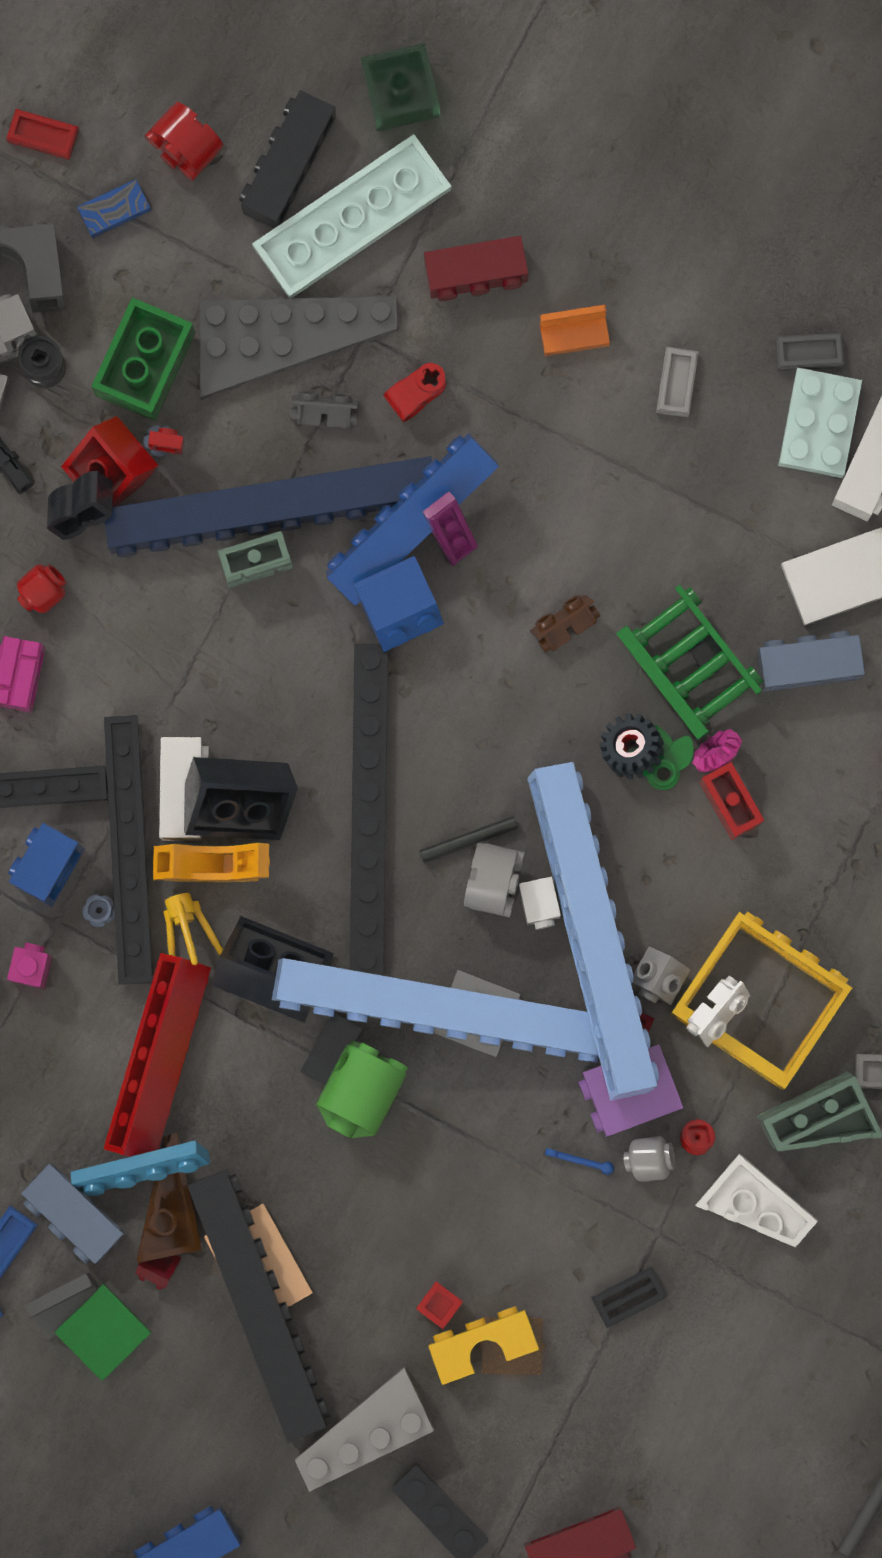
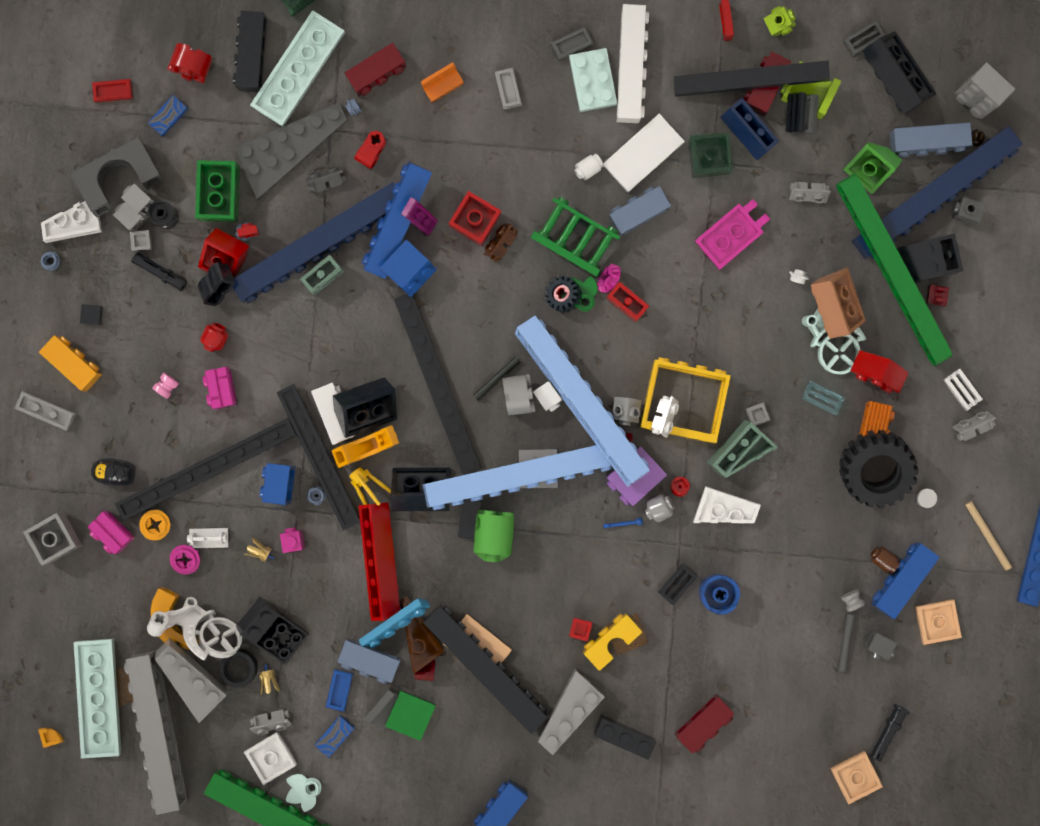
camera: 25 degrees left, 5 degrees up
(415, 312) = (353, 107): none -> sand blue plate
(538, 567) = (475, 218): none -> red brick
(704, 1353) = (729, 598): none -> blue brick
(756, 558) = (588, 167): none -> white brick

